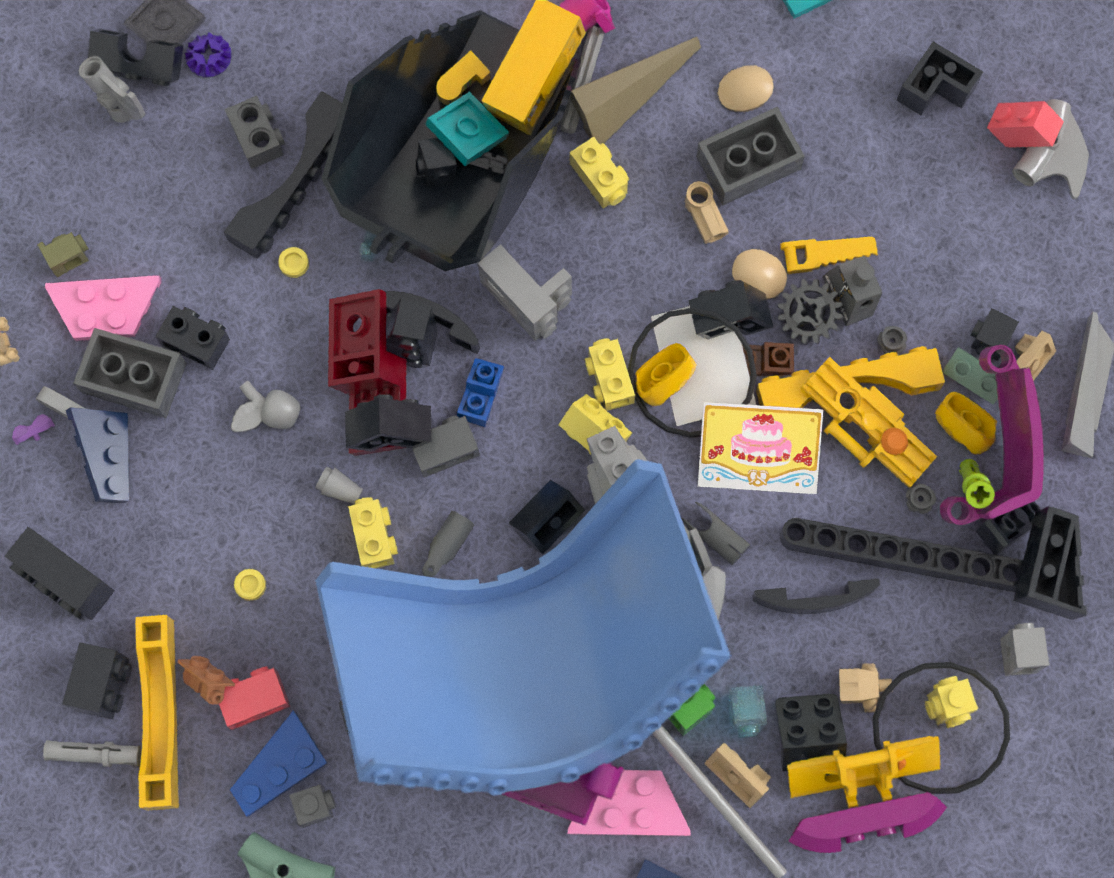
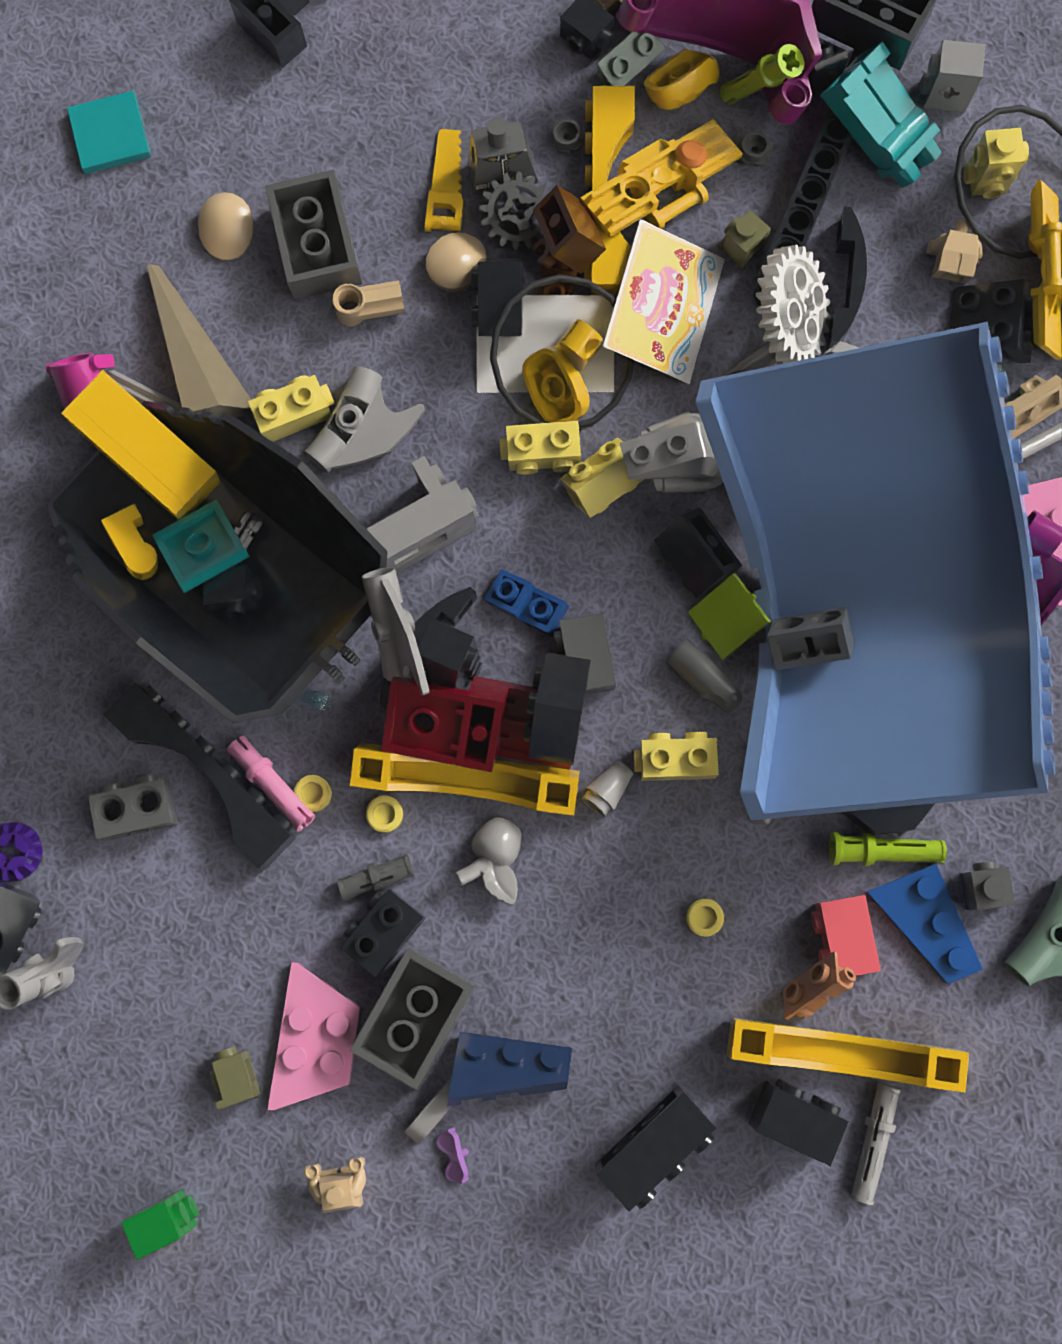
camera: 75 degrees left, 5 degrees up
(235, 323) = (375, 877): none -> dark grey pin
(287, 319) = (384, 814): none -> light yellow tile
(301, 218) = (261, 772): none -> bright pink pin
(327, 704) = (870, 849): none -> lime pin
(328, 406) = (509, 782): none -> yellow arch
(425, 278) = (393, 628): none -> light grey pin
(486, 615) = (811, 638): none -> dark grey brick
(498, 553) = (729, 616): none -> lime piece
(598, 240) = (374, 427): none -> light grey pin
(701, 383) = (580, 343): none -> yellow leg
(773, 549) = (793, 304): none -> white gear
(795, 351) = (567, 232): none -> reddish brown brick
(832, 503) = (744, 238): none -> olive brick
(968, 595) = (883, 116): none -> teal hips

